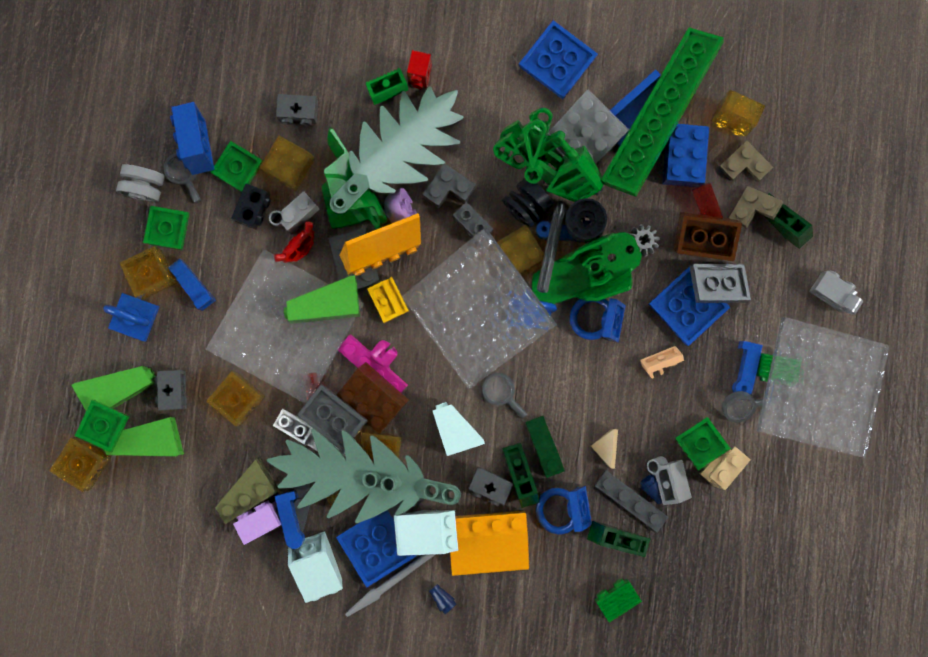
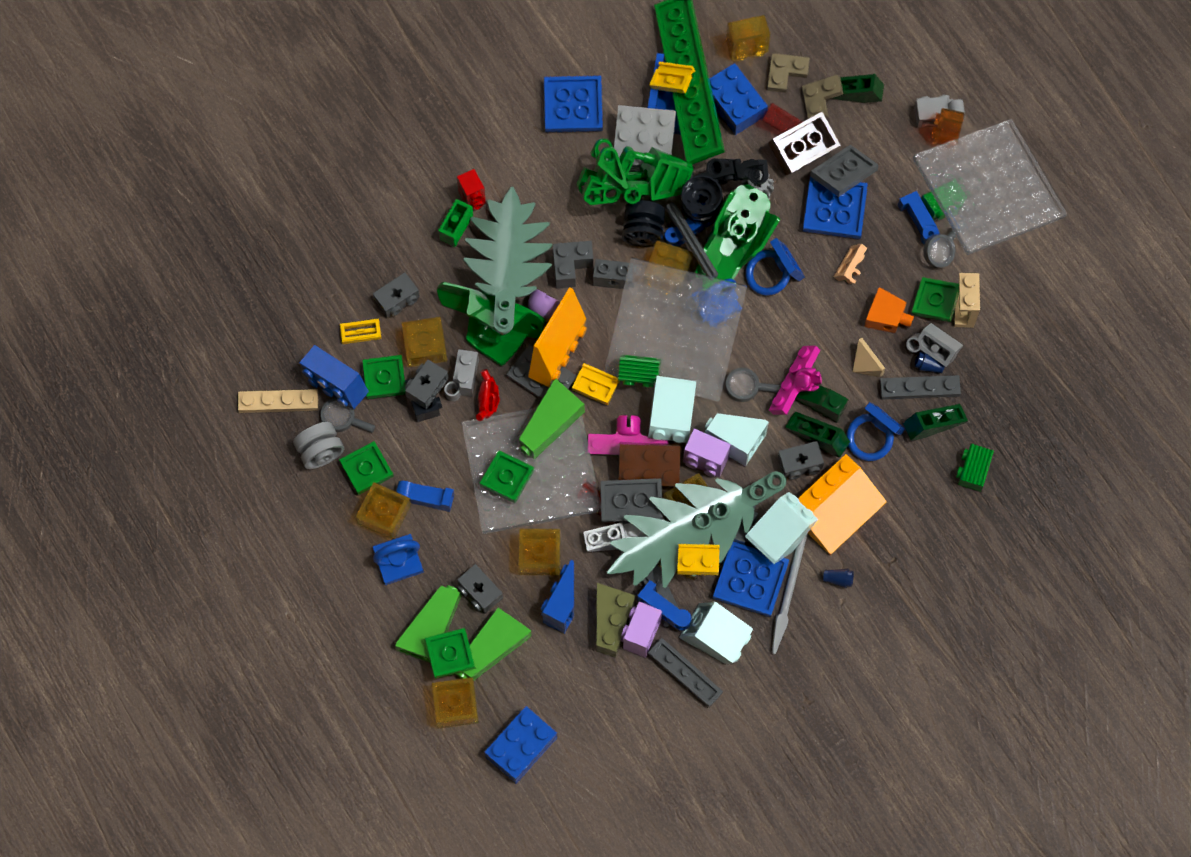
camera: 40 degrees left, 15 degrees down
(103, 534) = (521, 745): none -> blue brick
(145, 122) = (278, 401): none -> tan plate
(216, 455) = (559, 609): none -> blue slope
(256, 322) = (507, 476): none -> green plate
(263, 123) = (354, 339): none -> yellow tile
(265, 202) = (425, 394): none -> dark grey brick
(268, 577) = (685, 672): none -> dark grey plate
(340, 508) = (698, 559): none -> yellow plate
(421, 425) = (706, 453): none -> lavender brick
(422, 370) = (672, 409): none -> light aqua slope
(425, 318) = (639, 370): none -> green brick
(540, 422) = (799, 378): none -> dark pink plate
(631, 213) = (733, 169): none -> black plate
(648, 100) = (672, 77): none -> yellow plate
(656, 423) = (887, 312): none -> orange torso
(832, 313) = (948, 126): none -> clear orange brick

